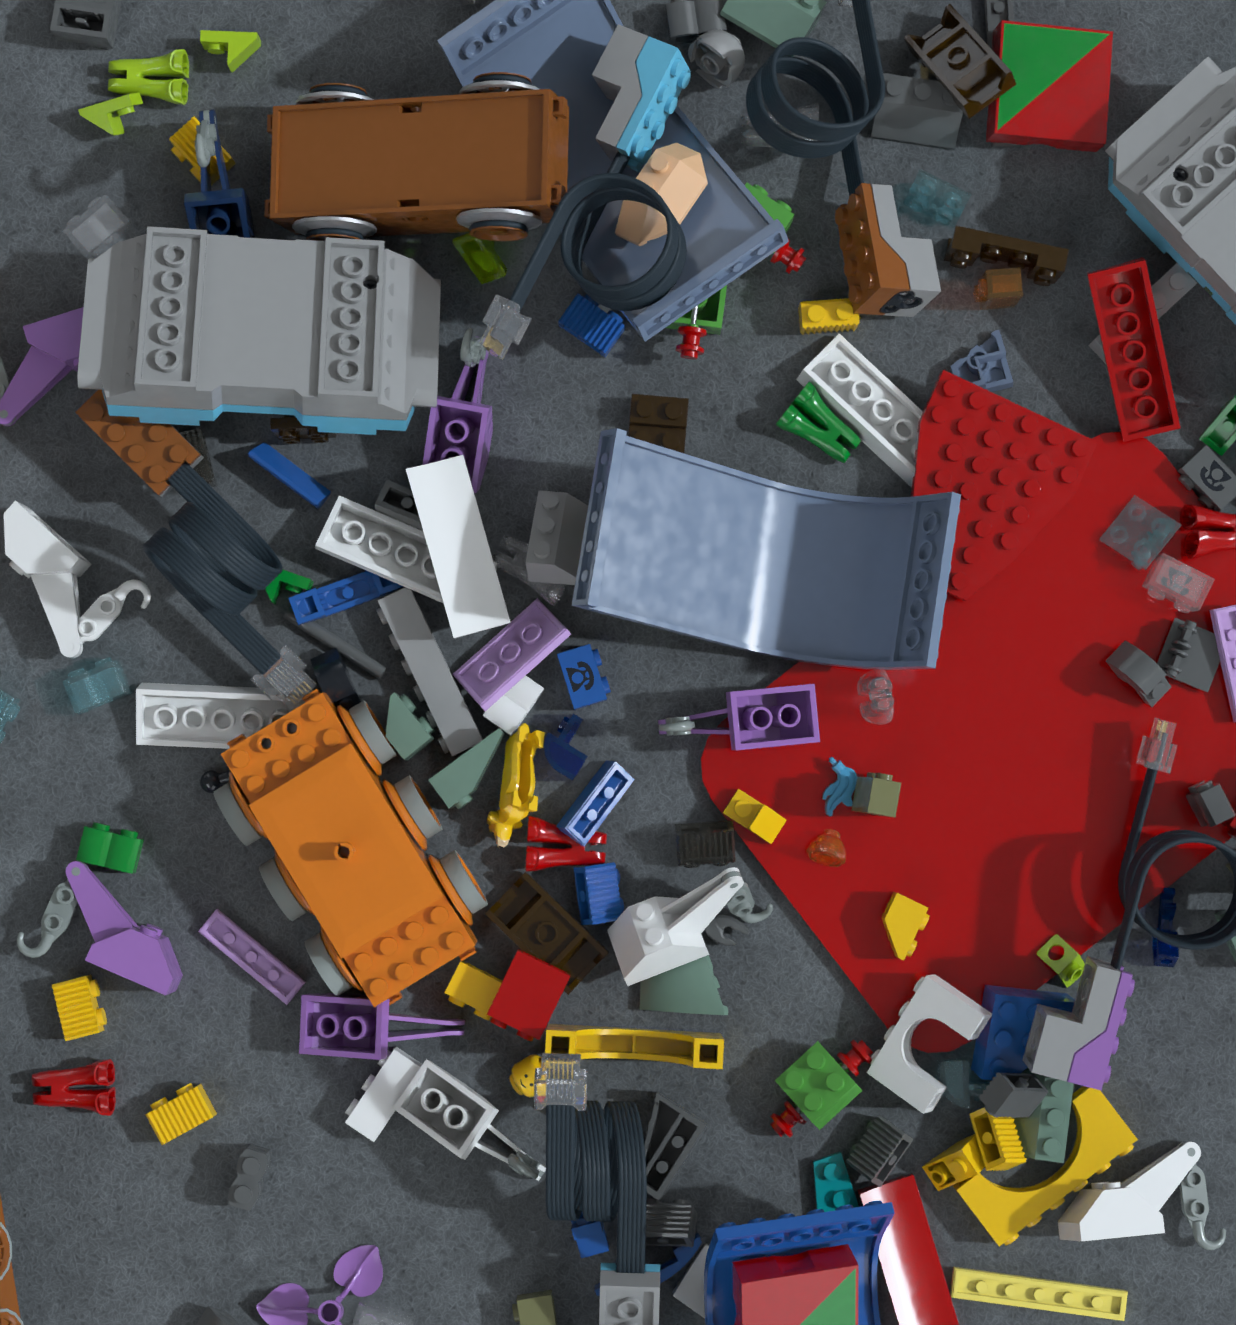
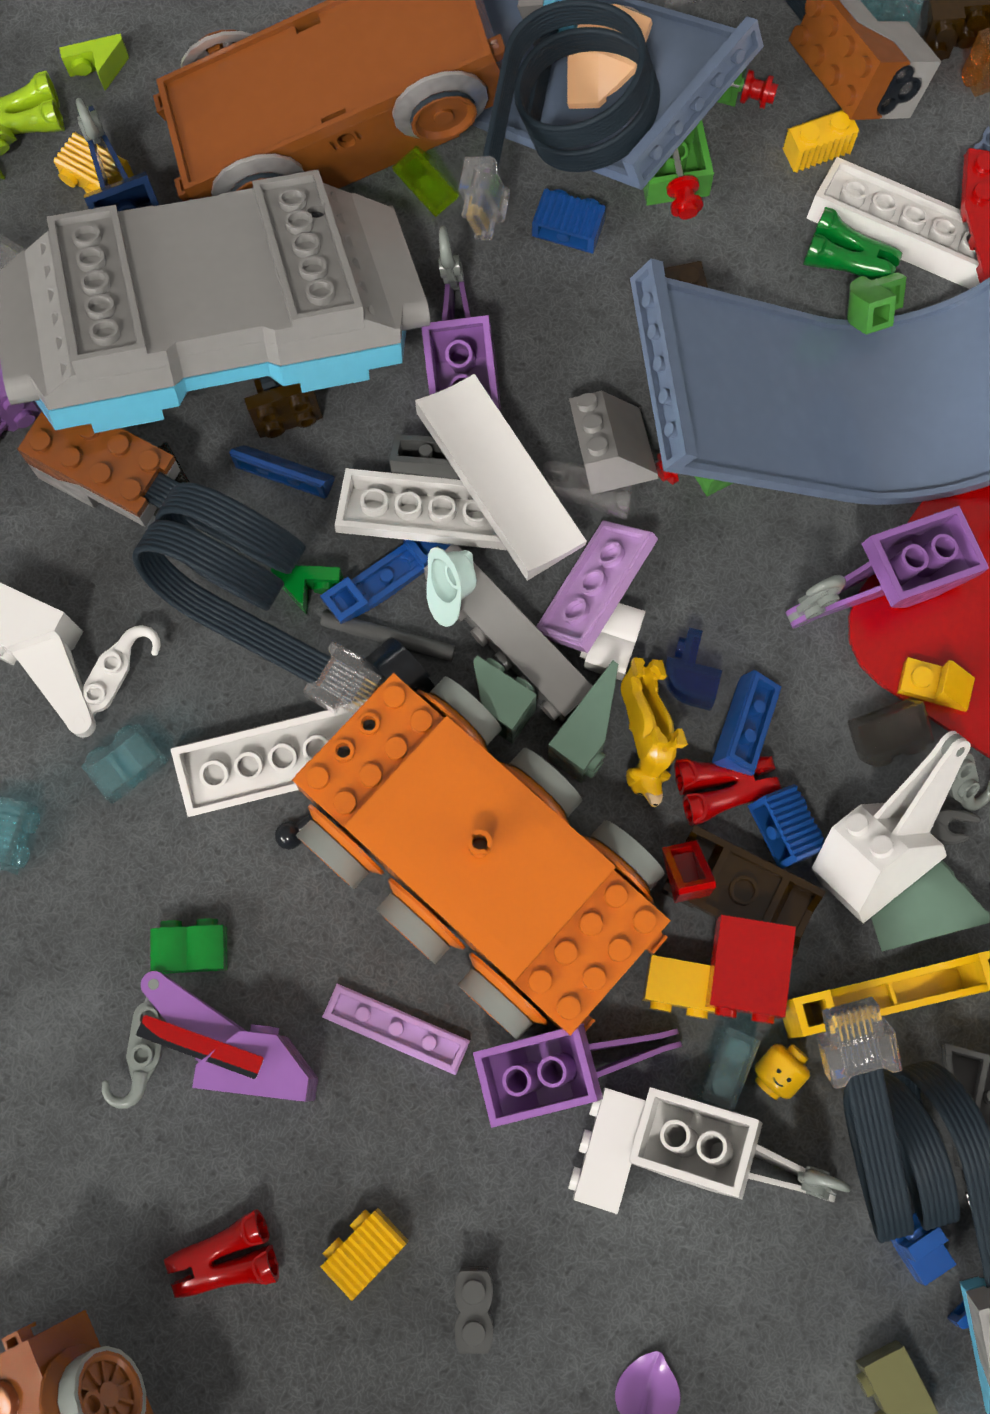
camera: 10 degrees left, 10 degrees down
(79, 1007) = (201, 1155): yellow brick -> none
(98, 931) = (200, 1046): none -> red sticker
(392, 622) = (448, 582): none -> light aqua piece
(491, 1062) = (728, 1069): none -> clear light blue brick
(506, 906) = (688, 871): none -> red slope
(583, 677) = (684, 587): blue brick -> none
(818, 478) = (875, 301): none -> bright green brick

